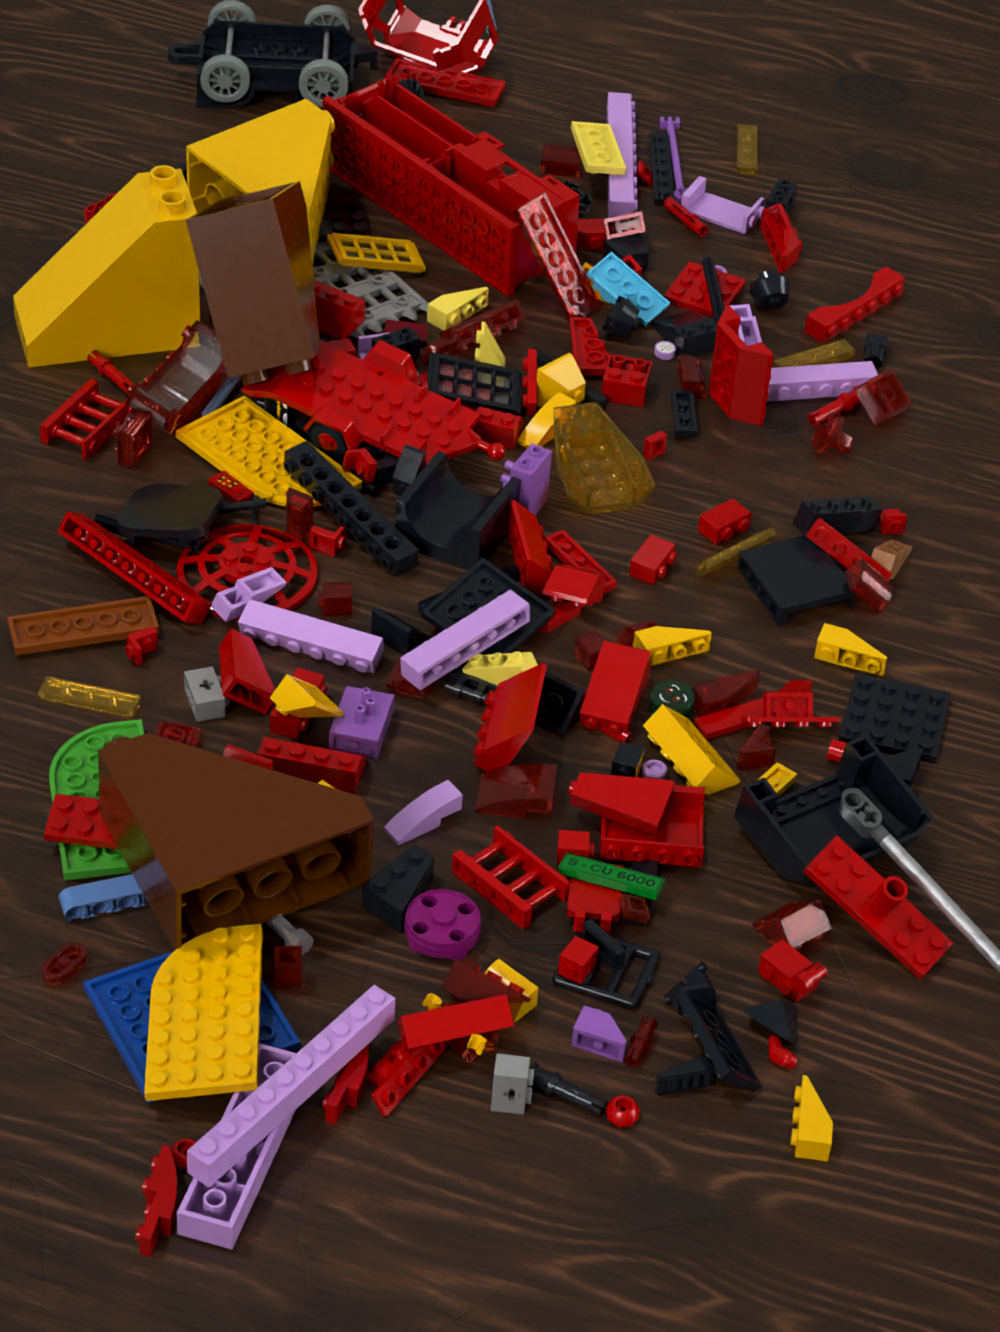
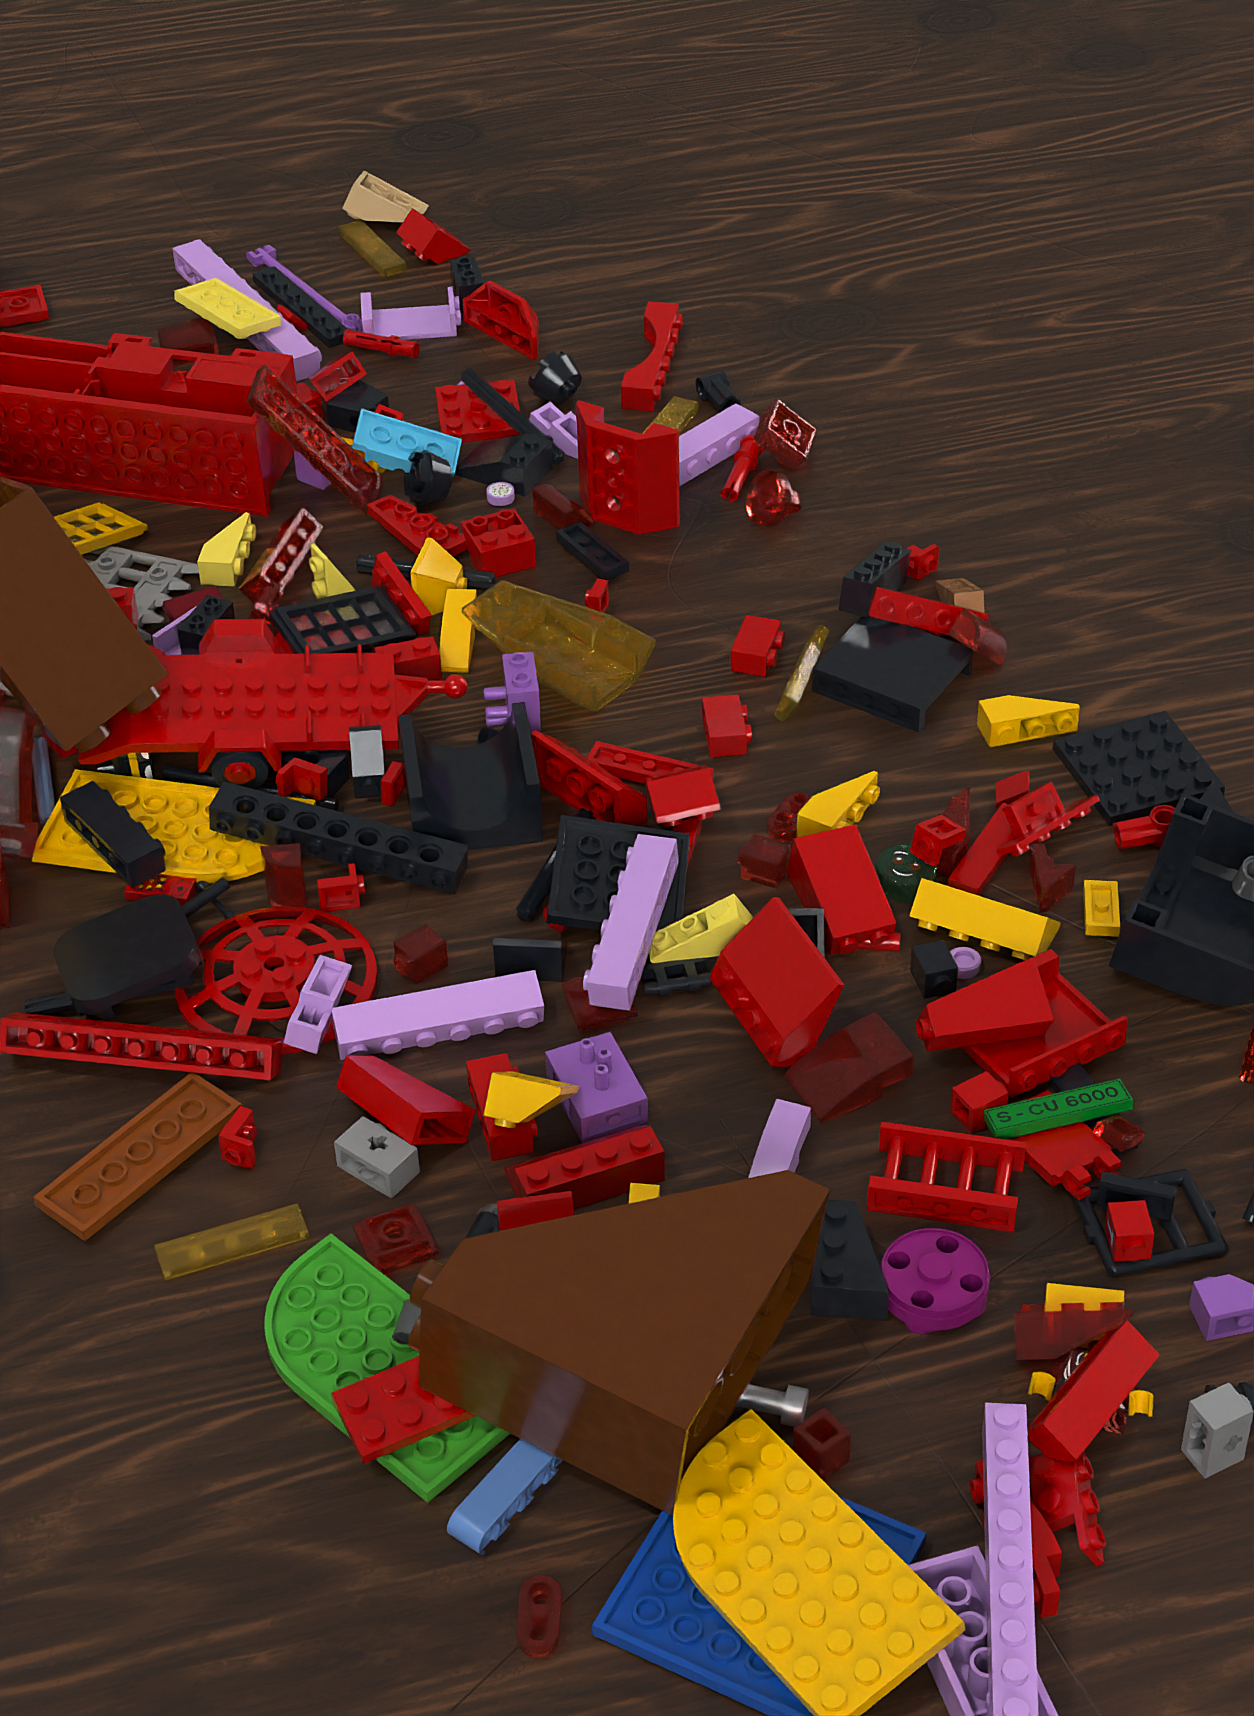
camera: 30 degrees left, 0 degrees up
(225, 444) = (113, 833): none -> black brick
(700, 685) = (933, 837): none -> red bracket
(778, 117) = (379, 201): none -> tan slope
(789, 159) = (429, 239): none -> red slope

